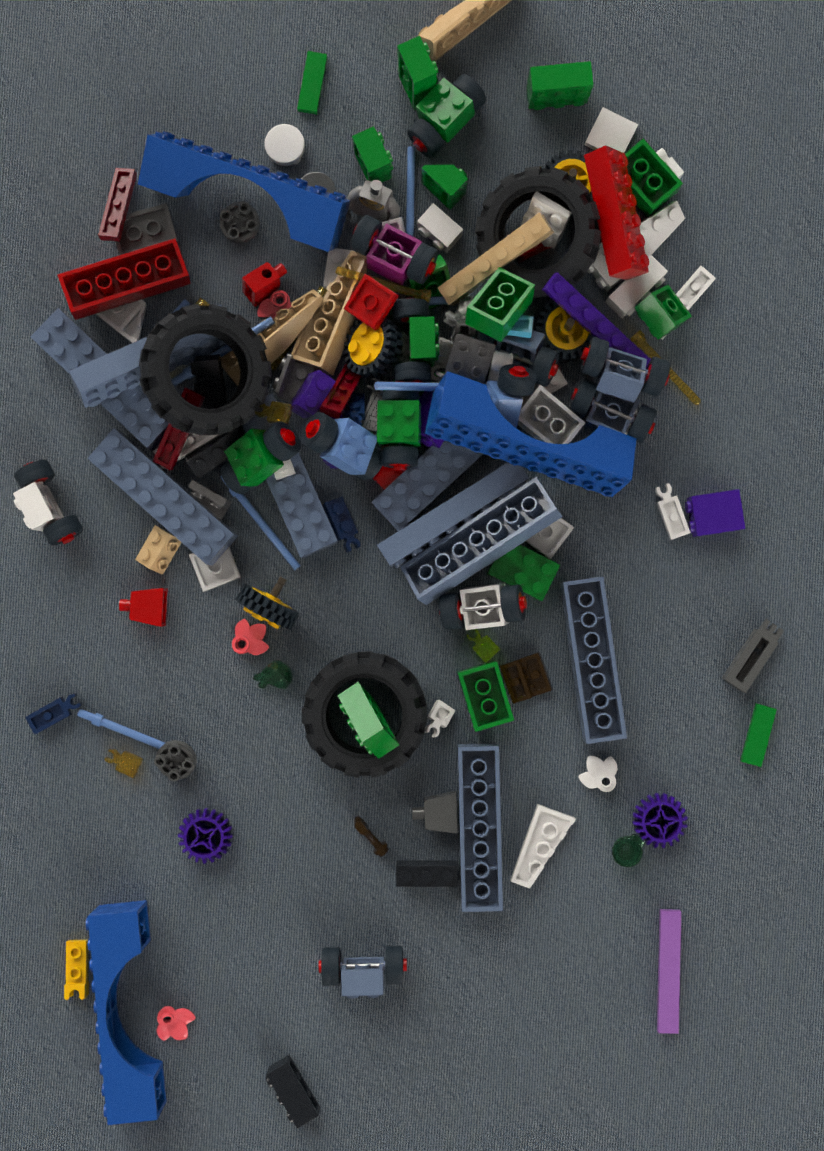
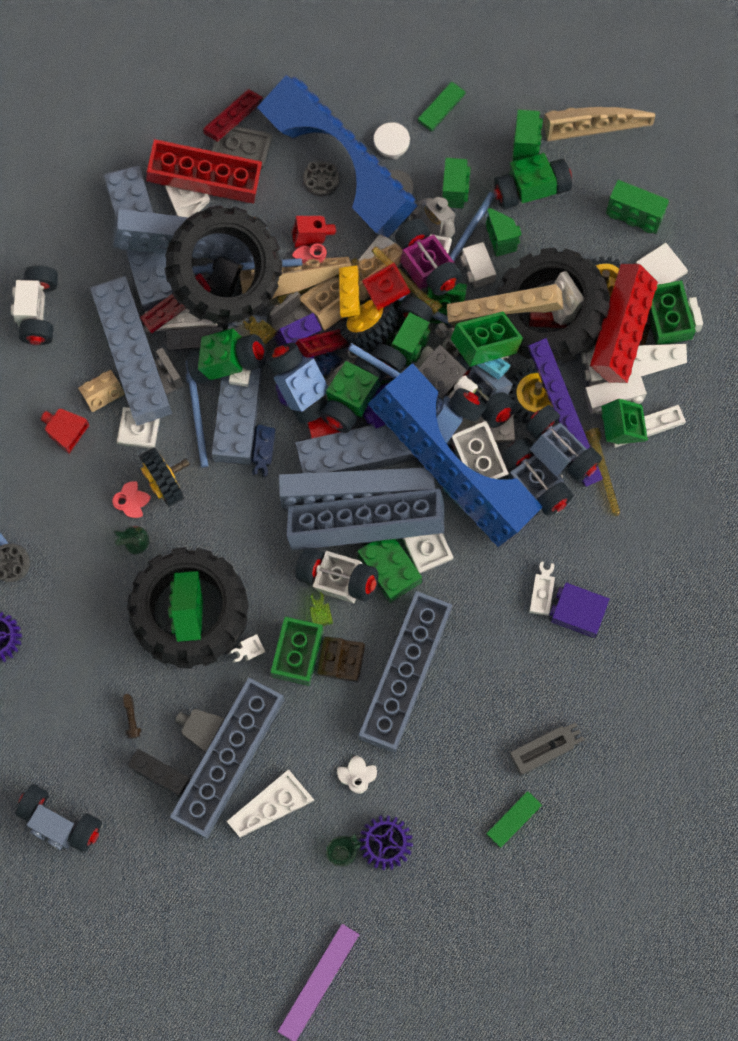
camera: 30 degrees right, 15 degrees down
(337, 326) = (349, 291): none -> yellow plate

